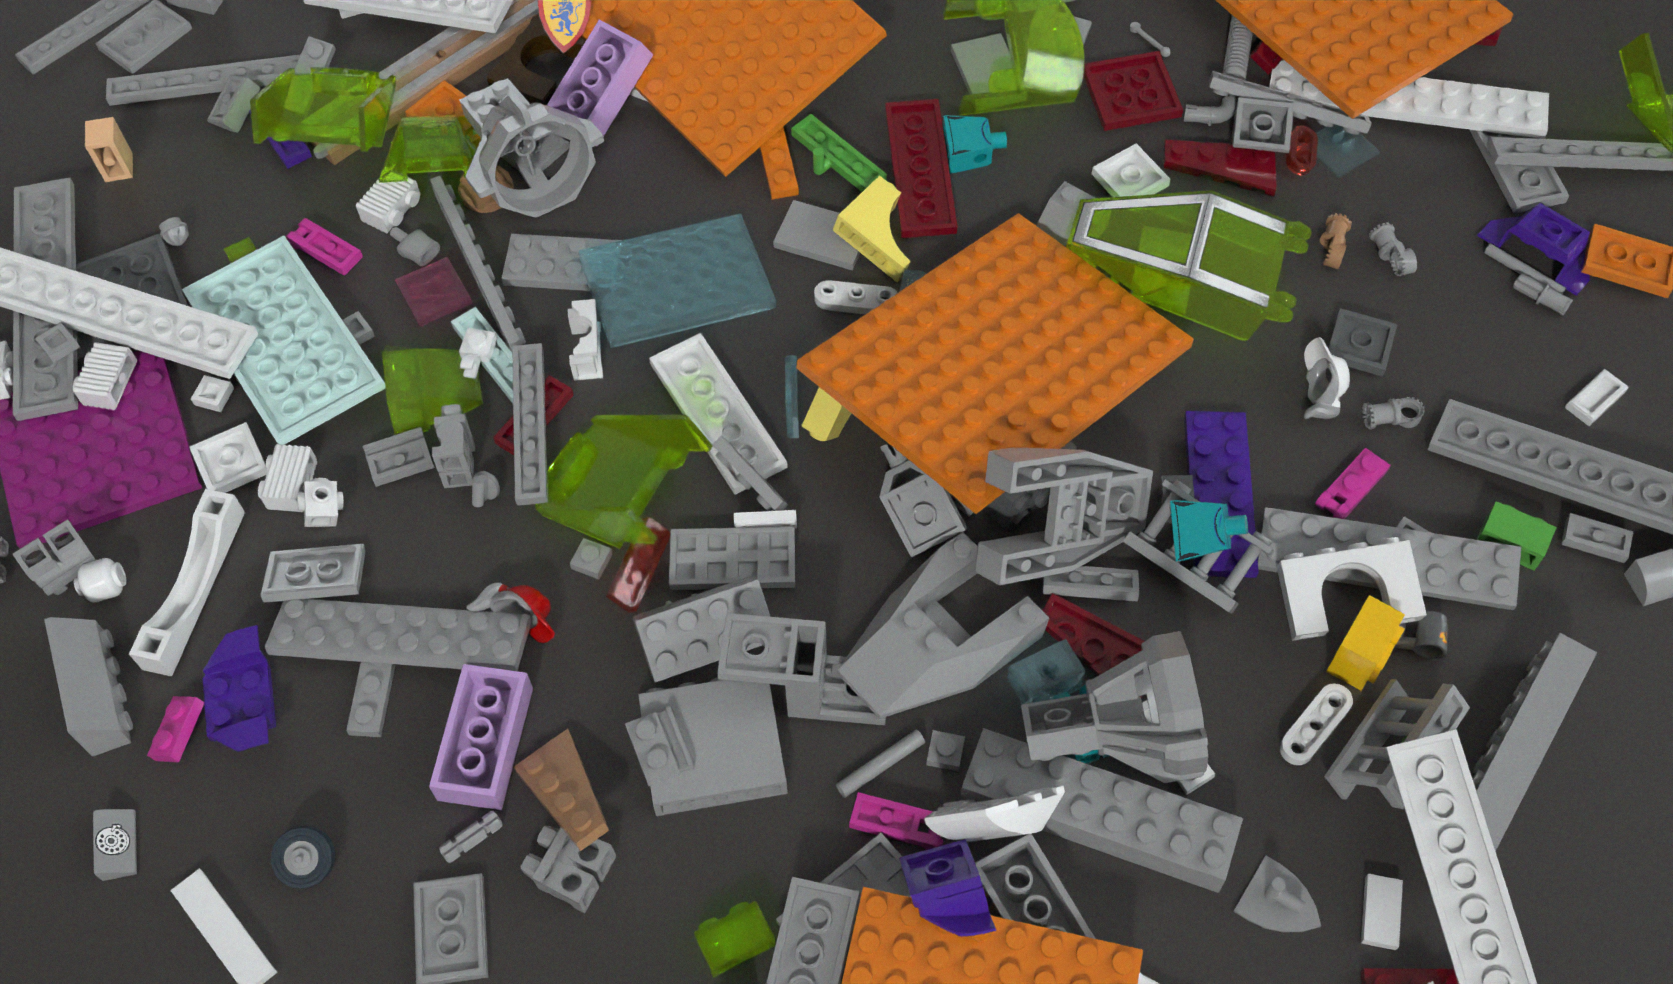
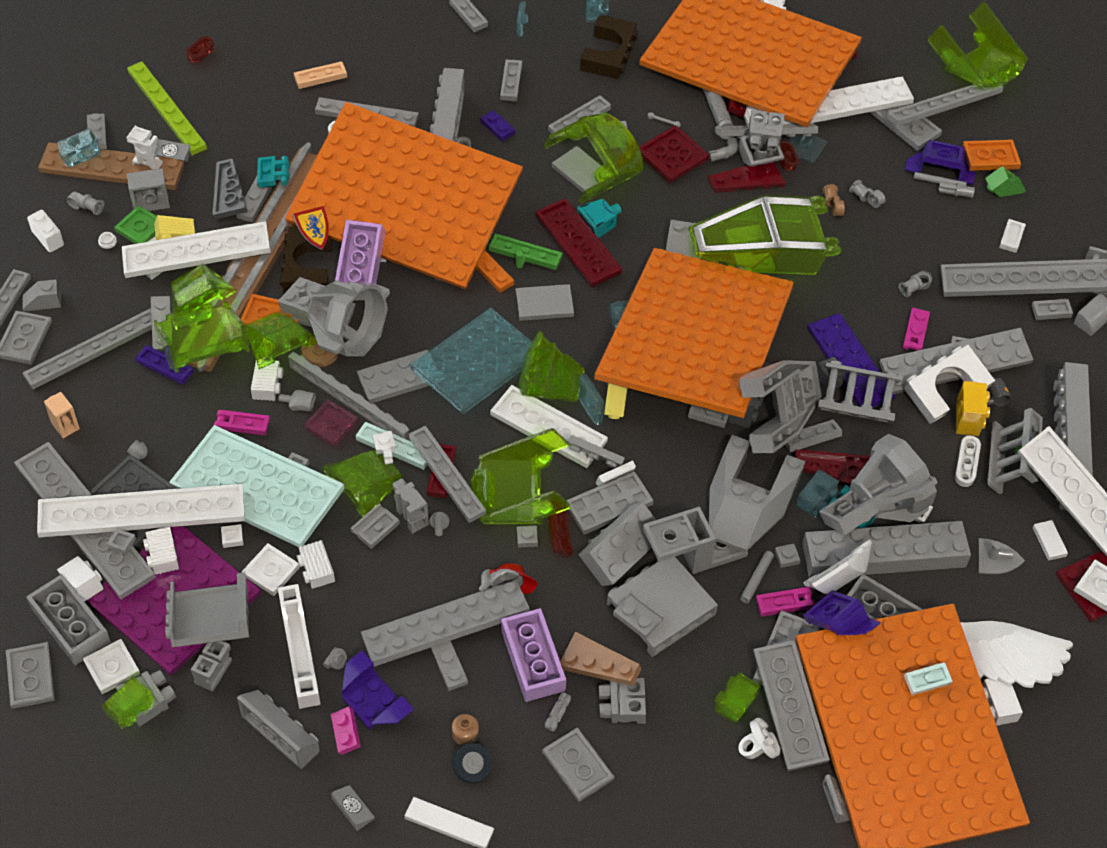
camera: 30 degrees left, 5 degrees down
(89, 485) = (207, 614): none -> light grey panel
(100, 580) = (240, 669): white head -> none
(230, 619) = (336, 659): none -> light grey plate
(233, 103) = (120, 357): light grey slope -> none
(239, 249) = (188, 446): clear neon green tile -> none
(313, 573) = (369, 610): light grey tile -> none
(320, 502) = (348, 569): white brick -> none
(324, 804) = (465, 729): none -> medium nougat head
(379, 48) = (198, 288): none -> clear neon green wedge
(587, 354) = (440, 402): white piece -> none
(760, 336) = (549, 372): none -> clear neon green wedge
(843, 300) = (581, 335): white plate -> none
(868, 230) = (575, 289): light yellow arch -> none
(917, 504) = (697, 428): light grey plate -> none
(1130, 174) = (701, 203): white plate -> none
(1203, 528) = (862, 379): teal torso -> none
(1278, 99) = (763, 132): none -> light grey hips
(1327, 380) = (872, 277): hair -> none
(1362, 341) = (878, 251): dark grey plate -> none
(1516, 528) = (1012, 319): bright green brick -> none
(1628, 311) = (1004, 183): none -> bright green slope

